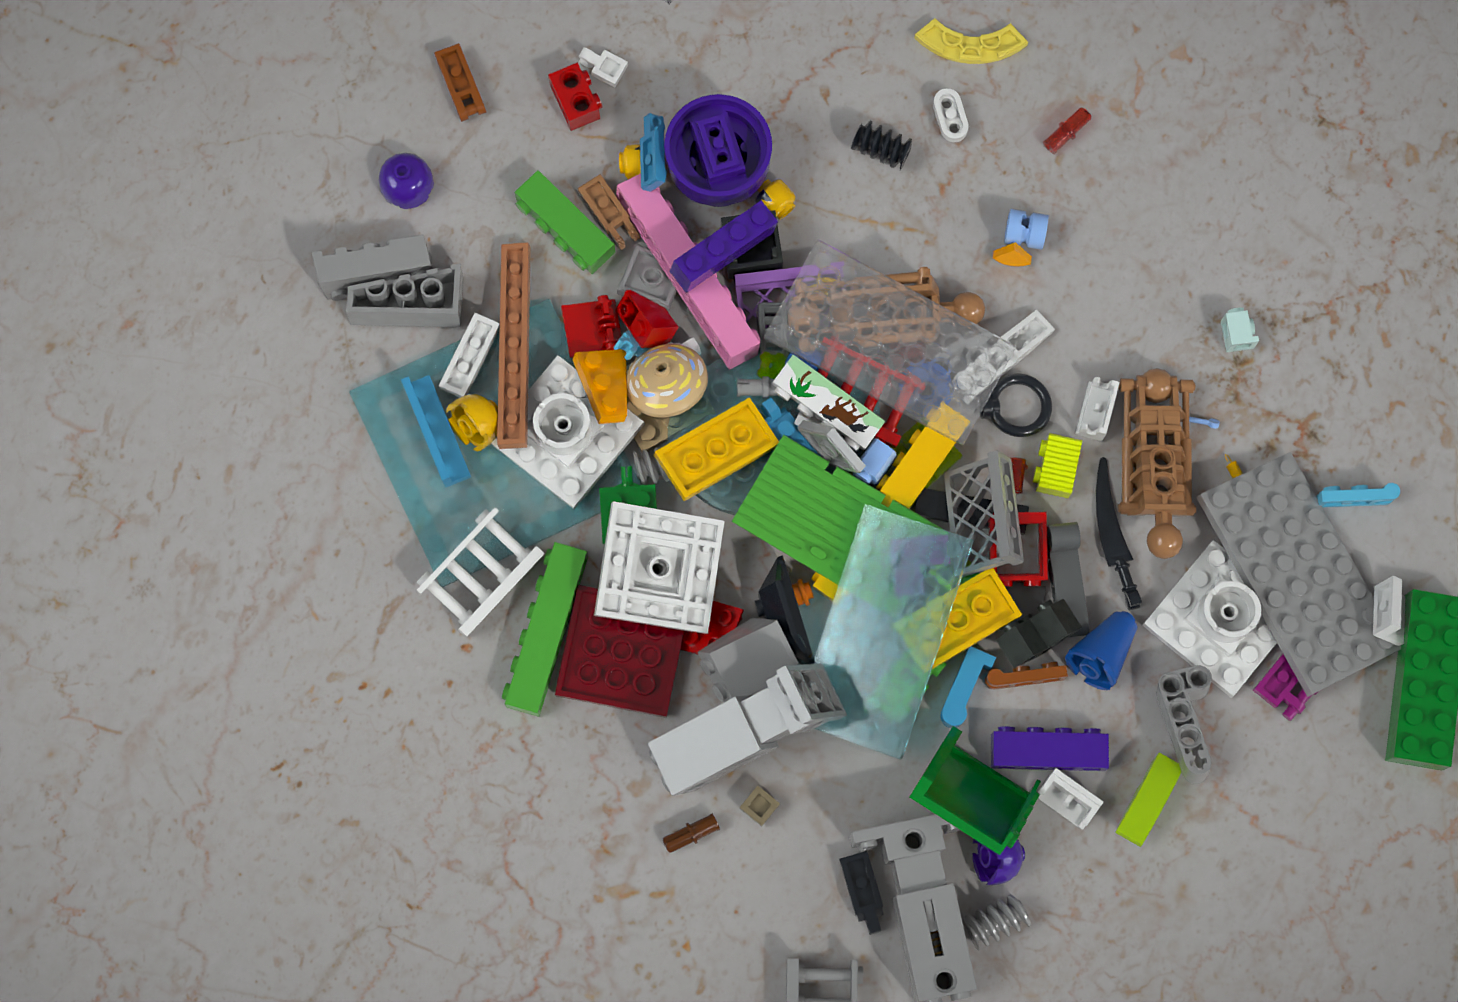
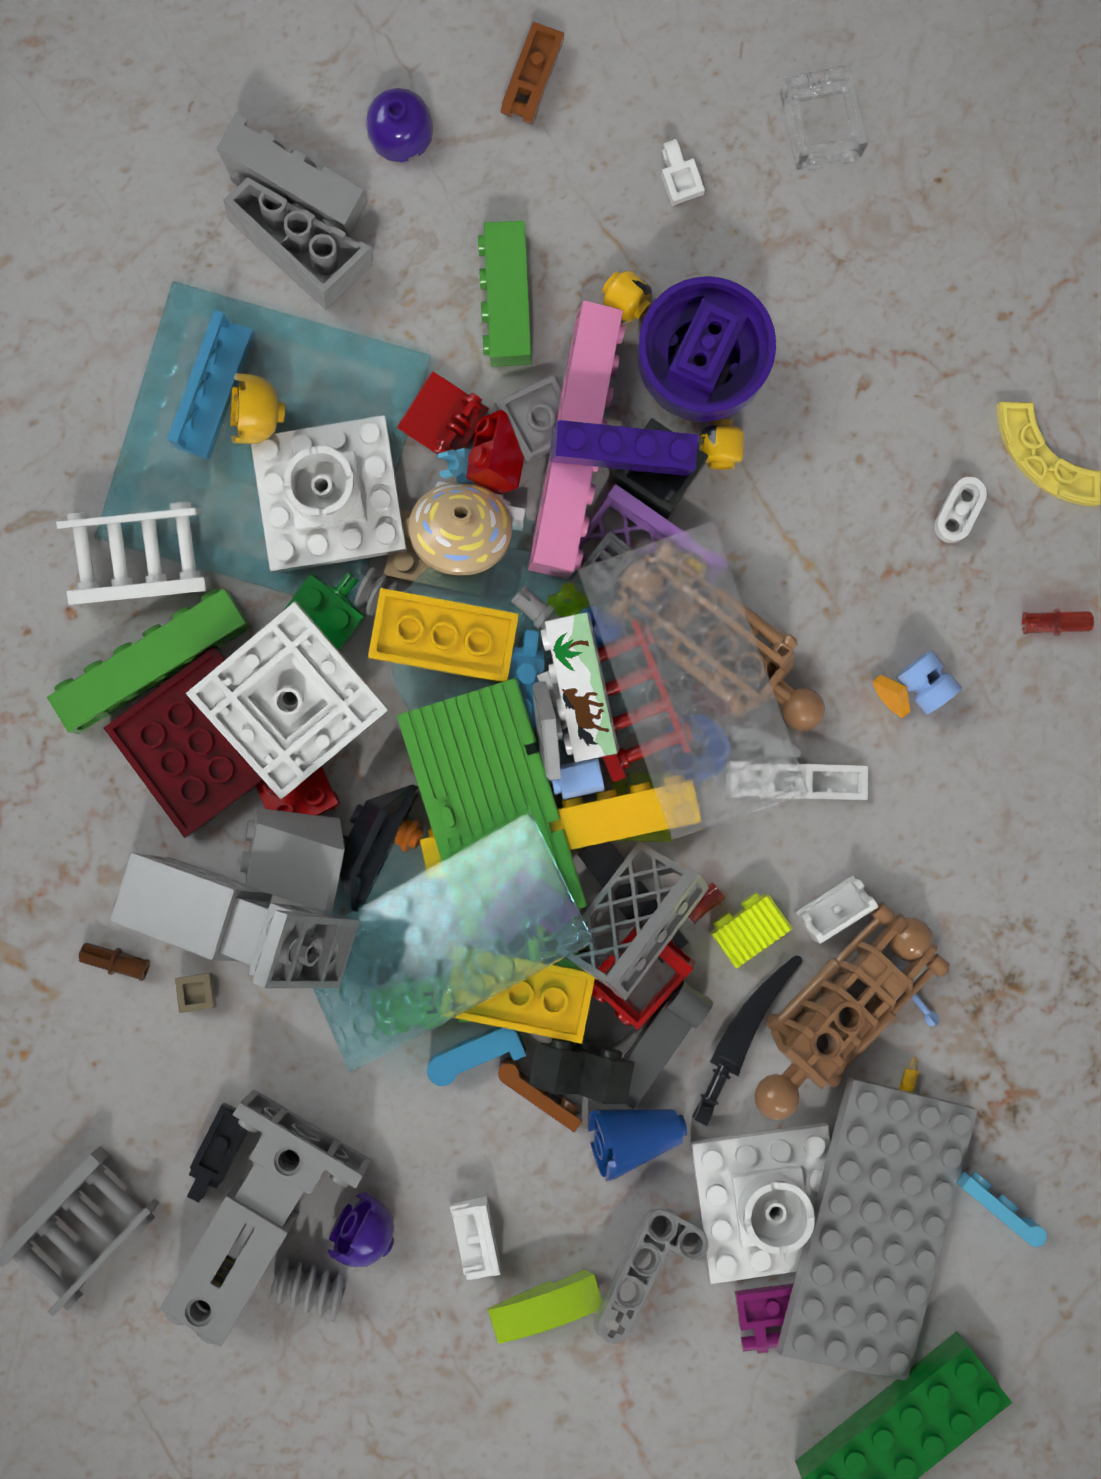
camera: 40 degrees right, 10 degrees up
(469, 355) = (304, 344): white plate -> none
(514, 346) = (350, 371): nougat plate -> none
(570, 98) = (621, 179): red brick -> none
(604, 383) = (400, 481): light orange wing -> none
(607, 209) = (558, 316): medium nougat hinge -> none
(652, 153) = (634, 306): dark azure hinge -> none
(882, 145) = (868, 481): black piece -> none
(974, 796) = (381, 1171): green panel -> none
(992, 406) = (740, 824): black piece -> none
(1049, 749) = (498, 1180): dark purple brick -> none
(1238, 330) = (1037, 954): light aqua brick -> none
(1389, 611) = (927, 1341): white panel -> none

